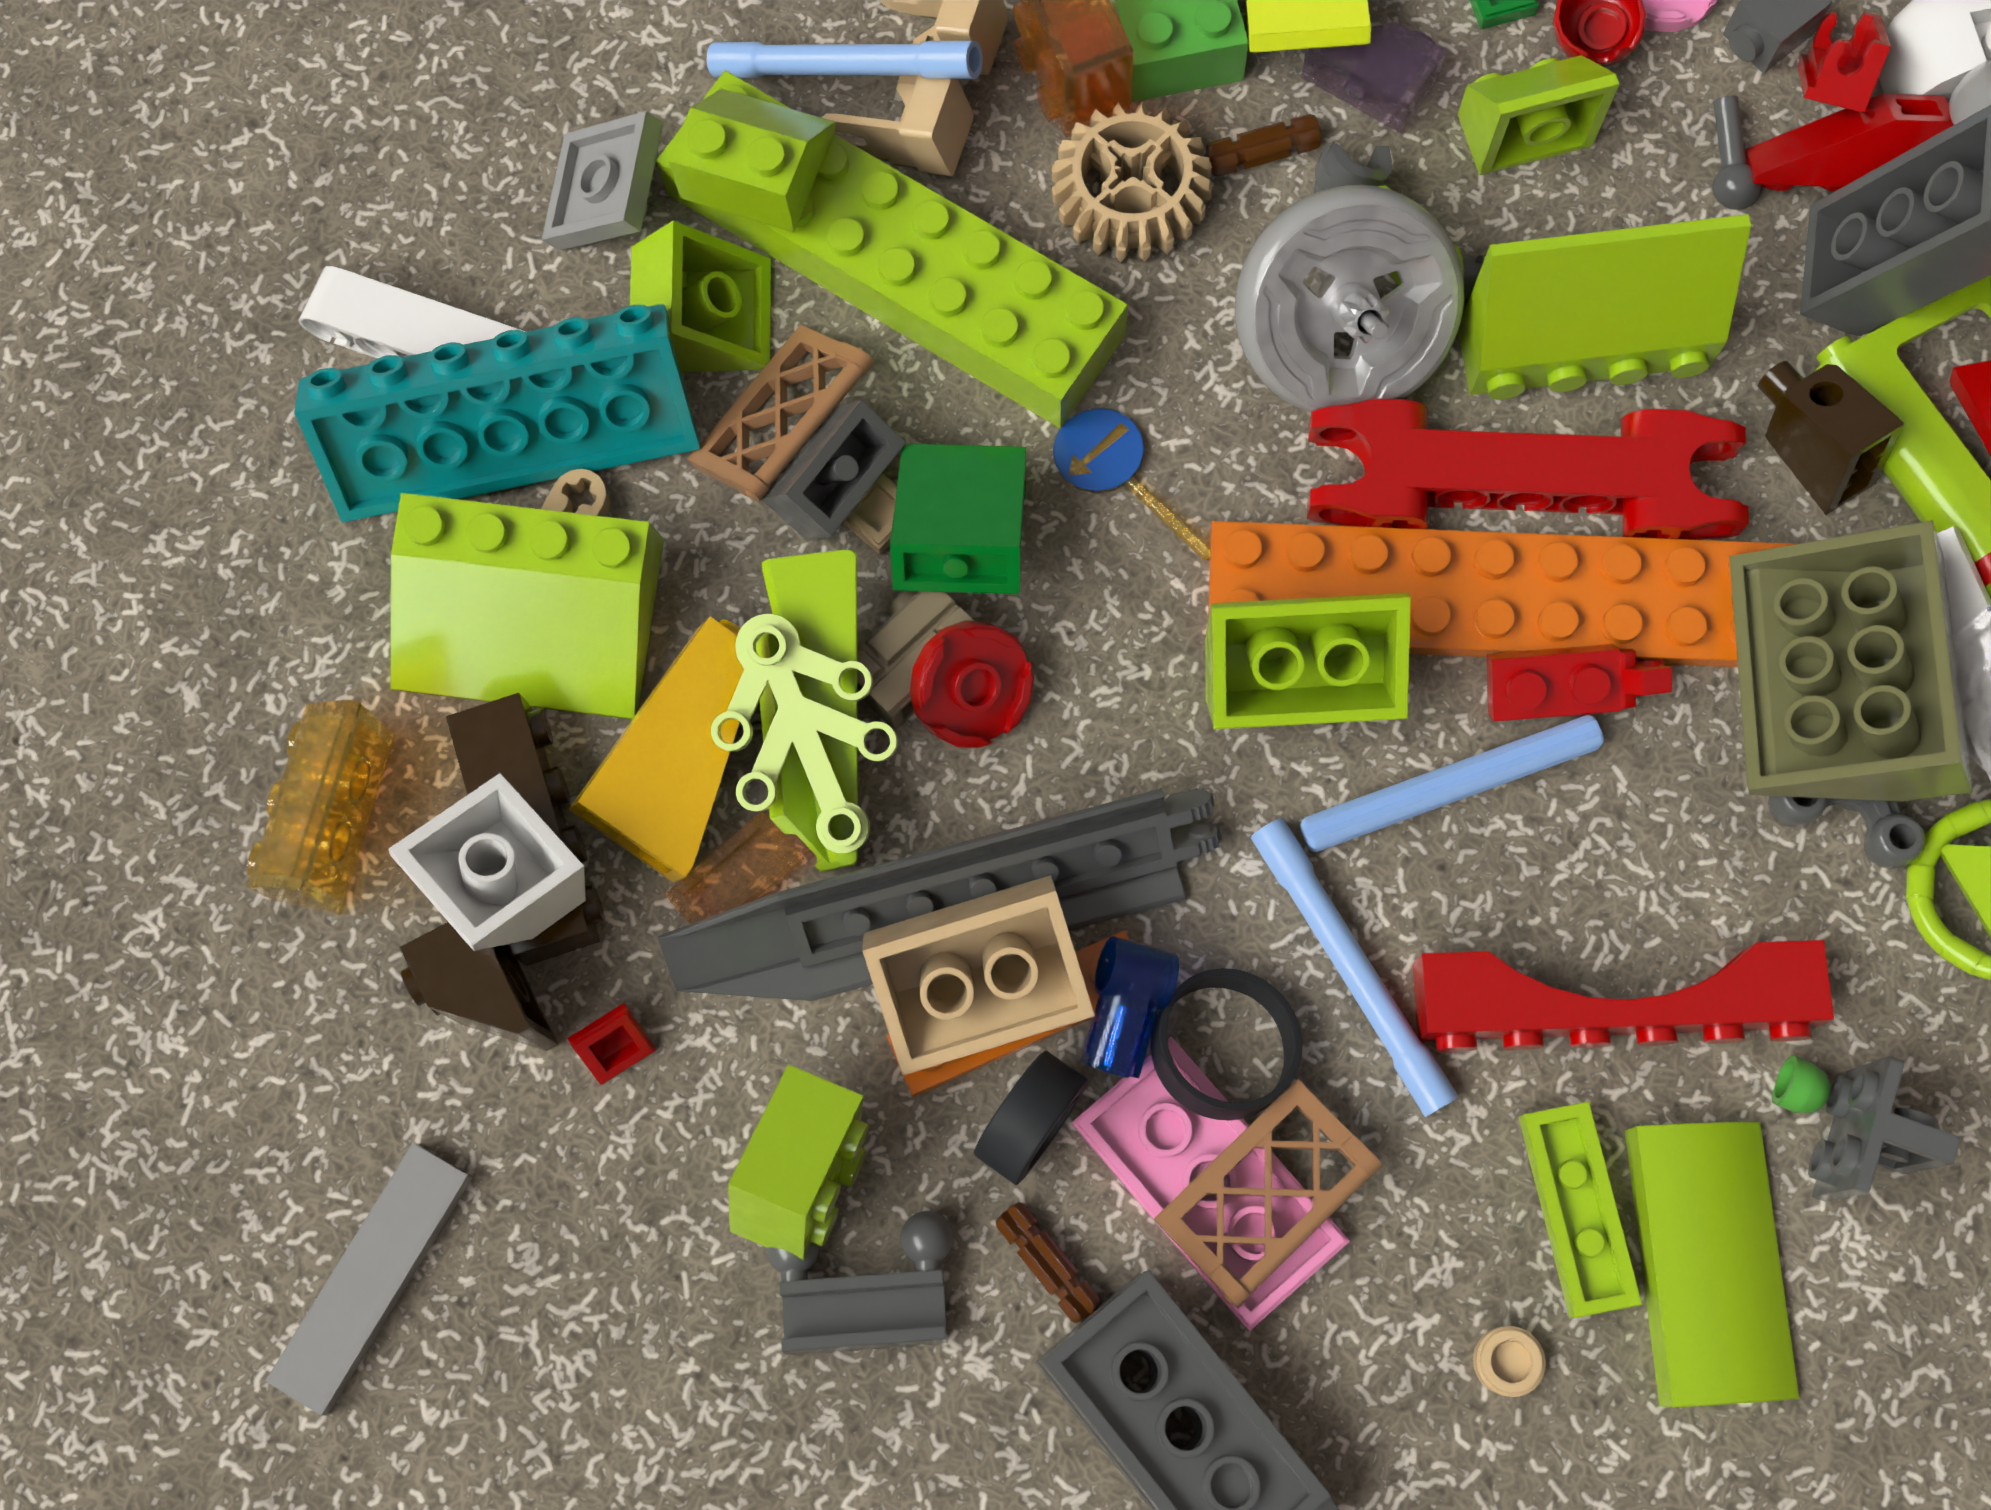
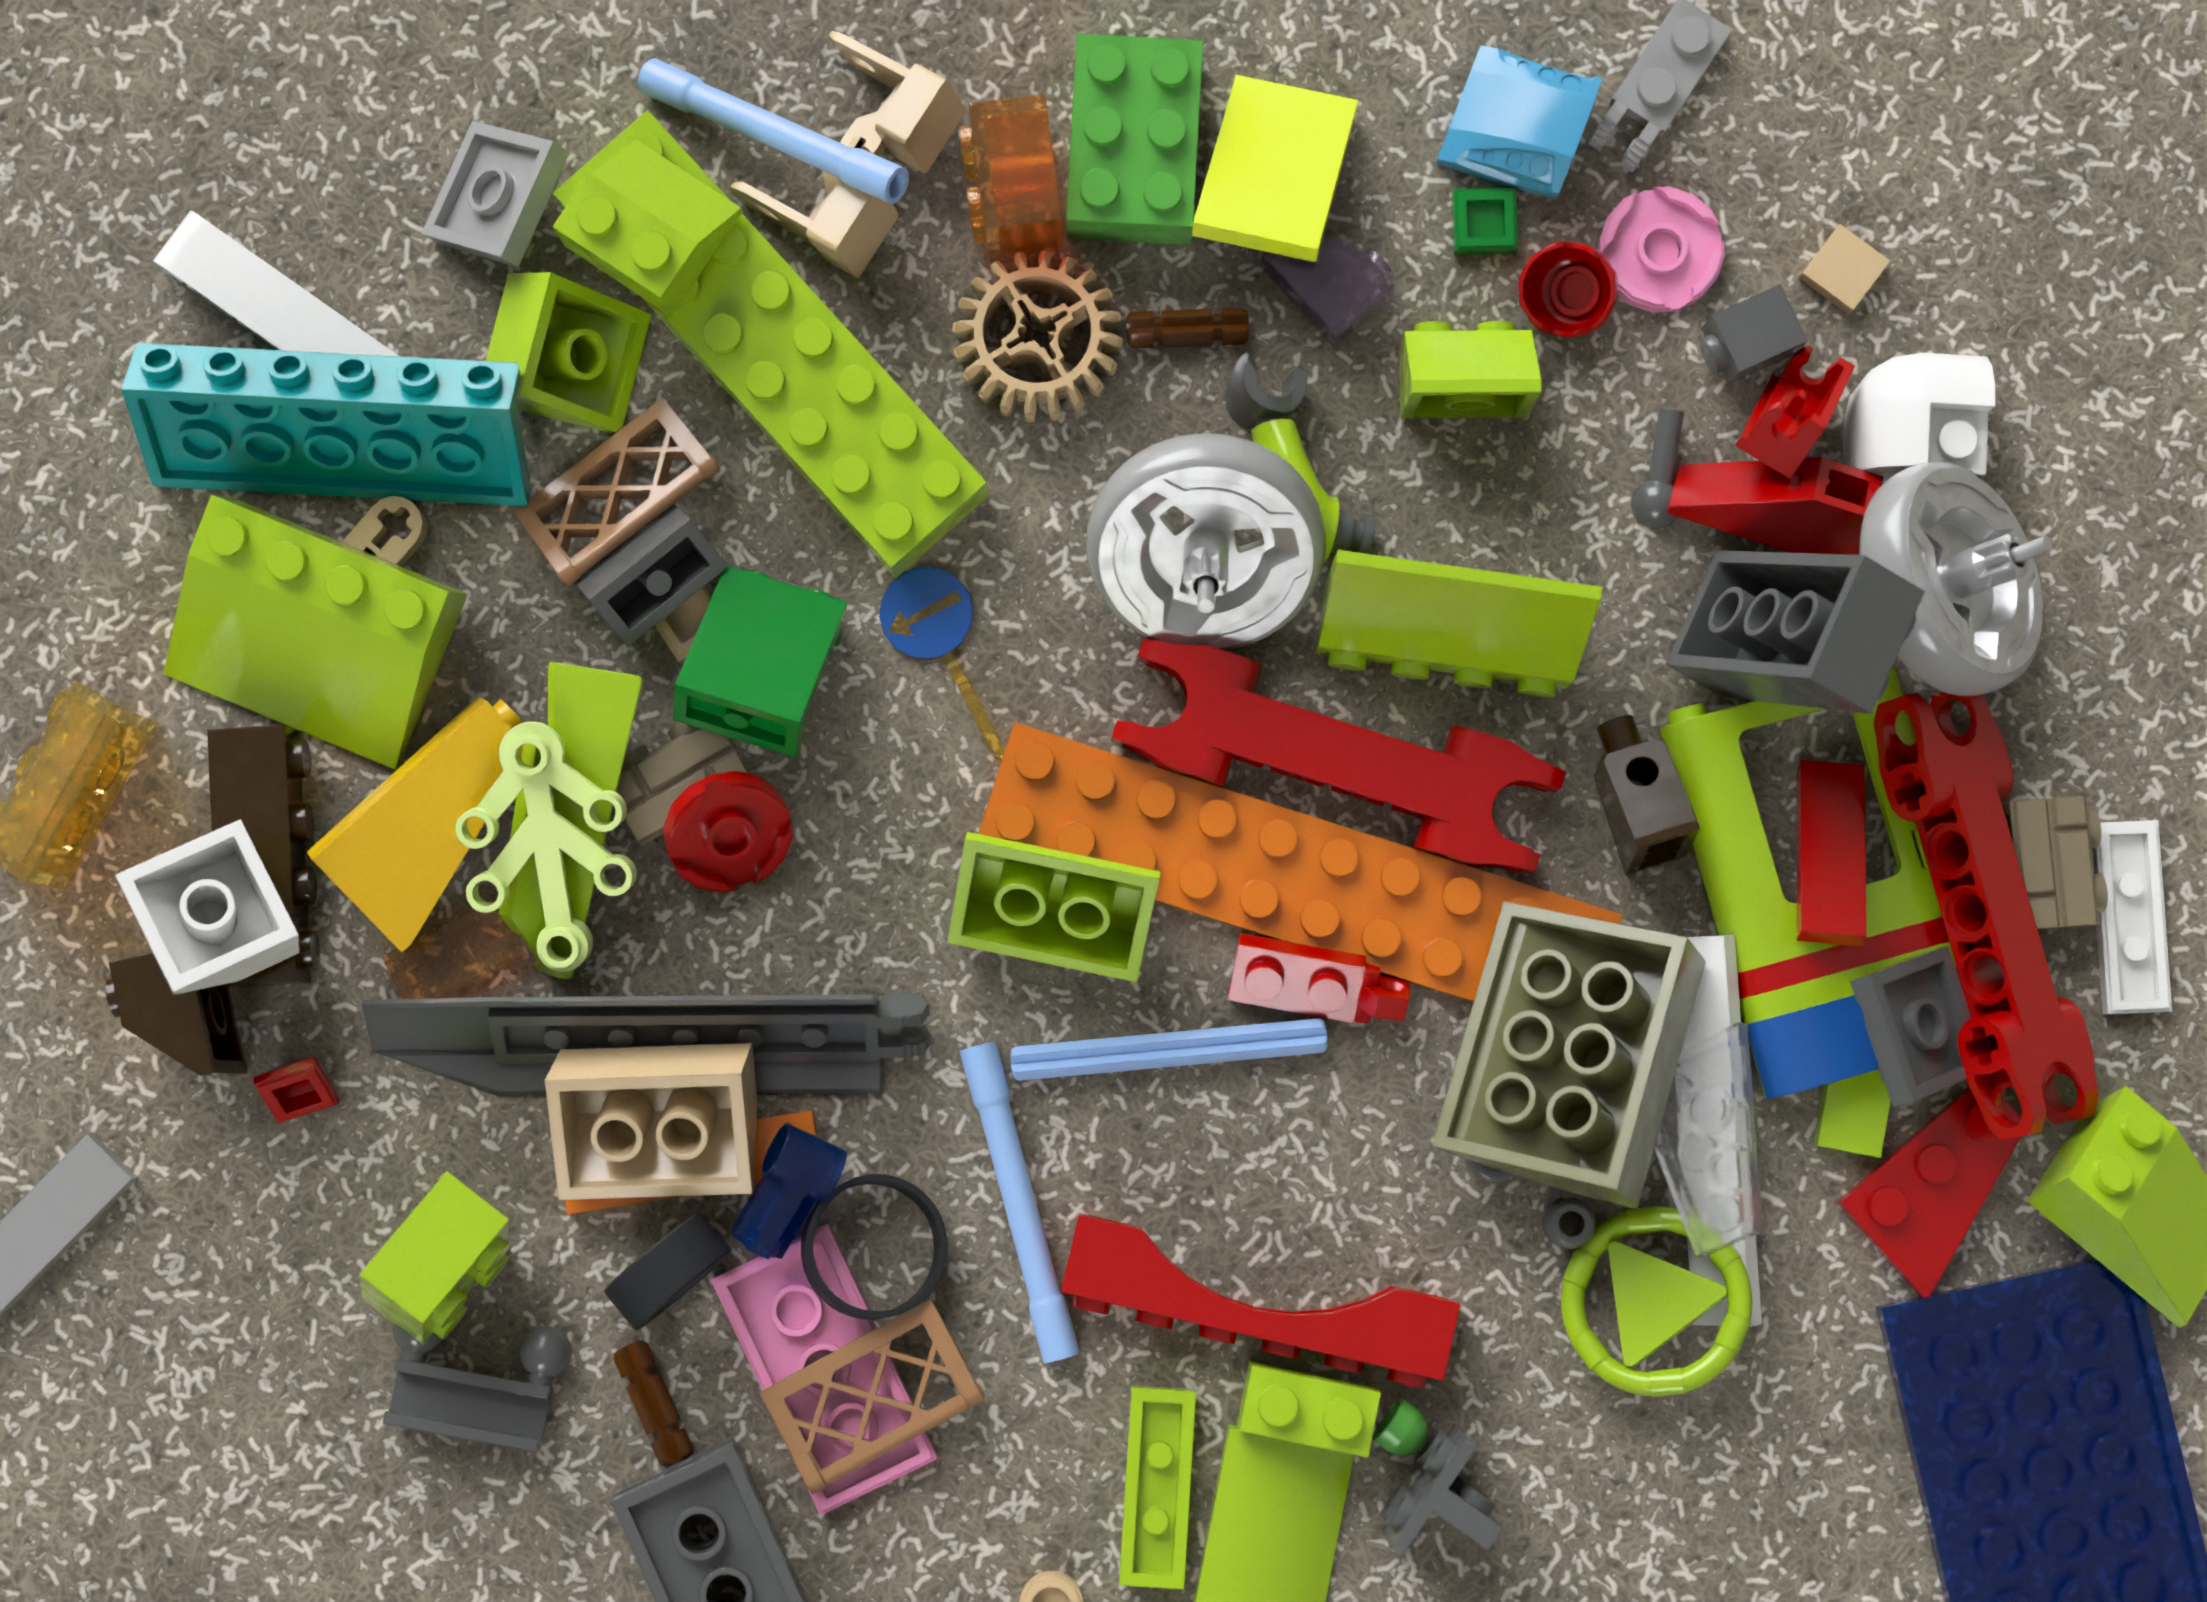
camera: 10 degrees right, 10 degrees up
(1706, 1086) = (1308, 1408): none -> lime brick

